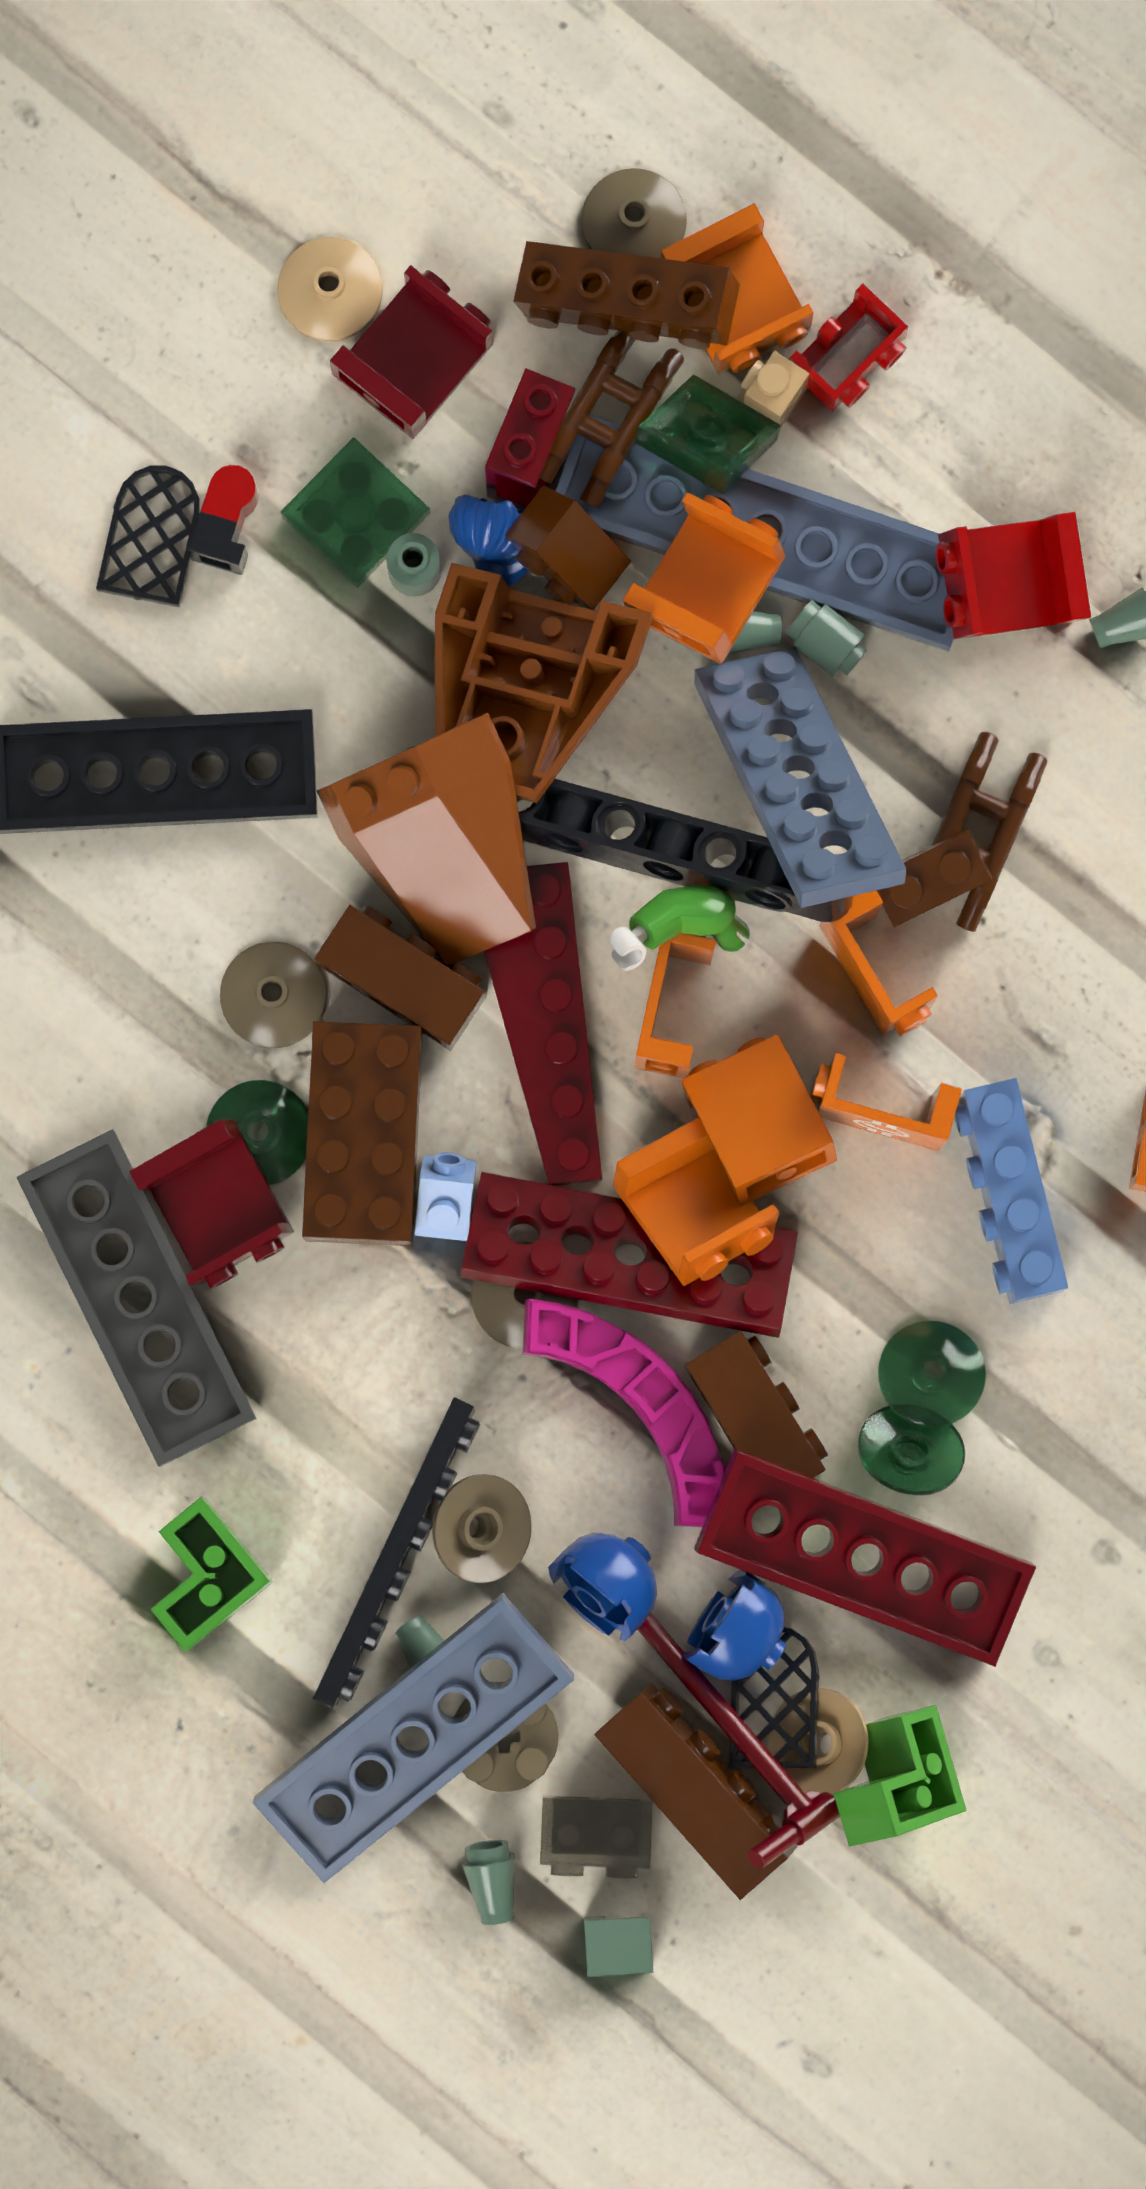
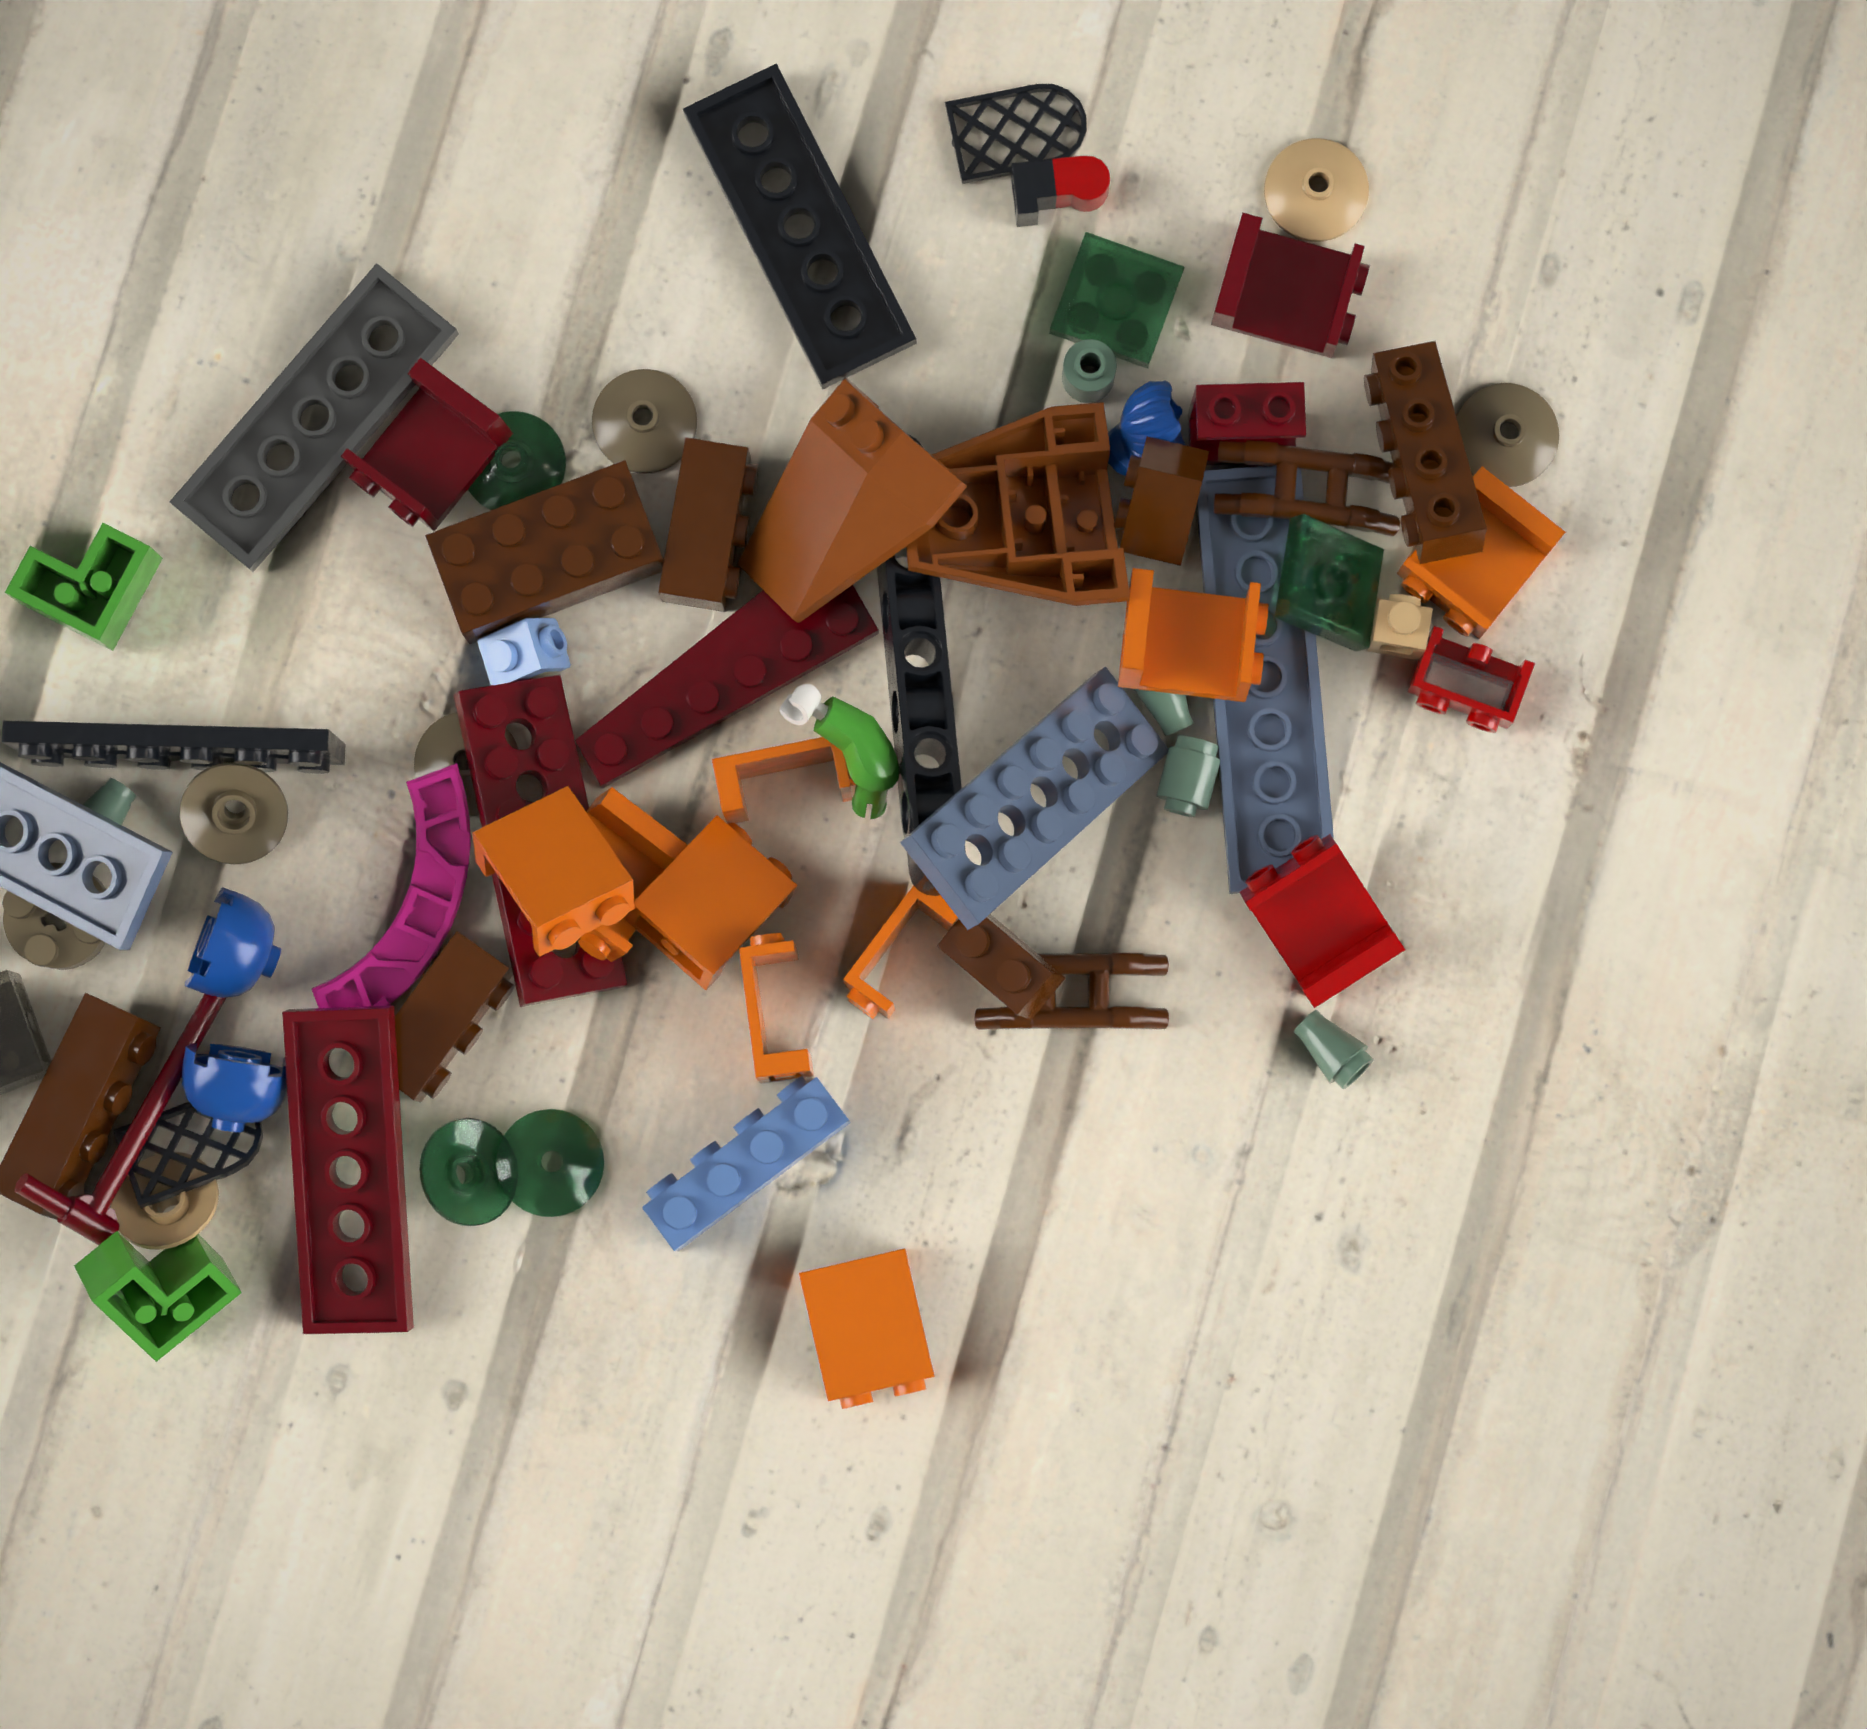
camera: 70 degrees right, 0 degrees up
(676, 1240) = (556, 869): none -> orange panel

